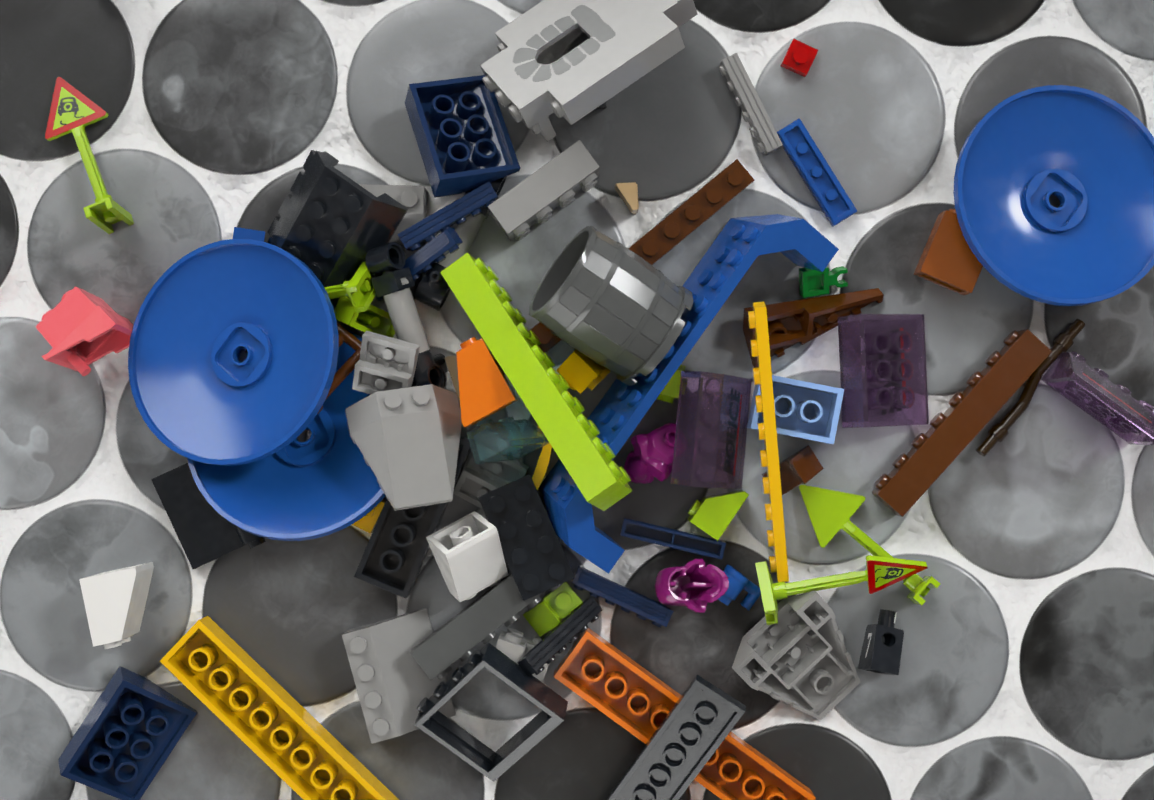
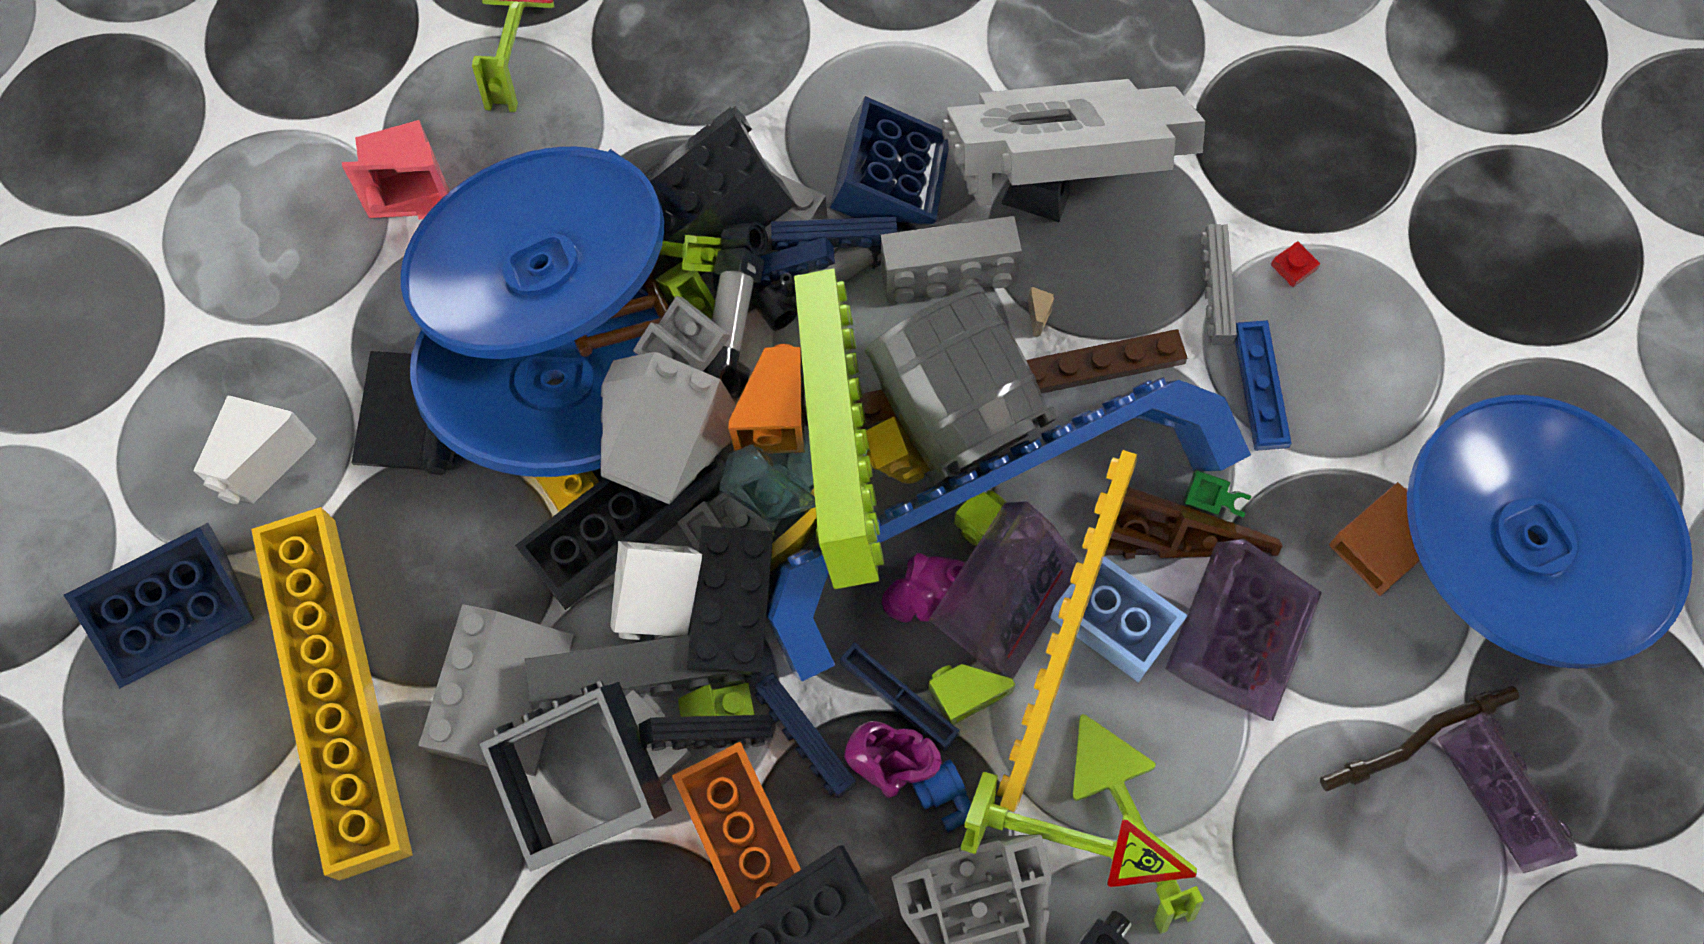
camera: 25 degrees right, 20 degrees down
(798, 469) = (1086, 693): reddish brown slope -> none
(961, 421) = (1313, 734): reddish brown brick -> none

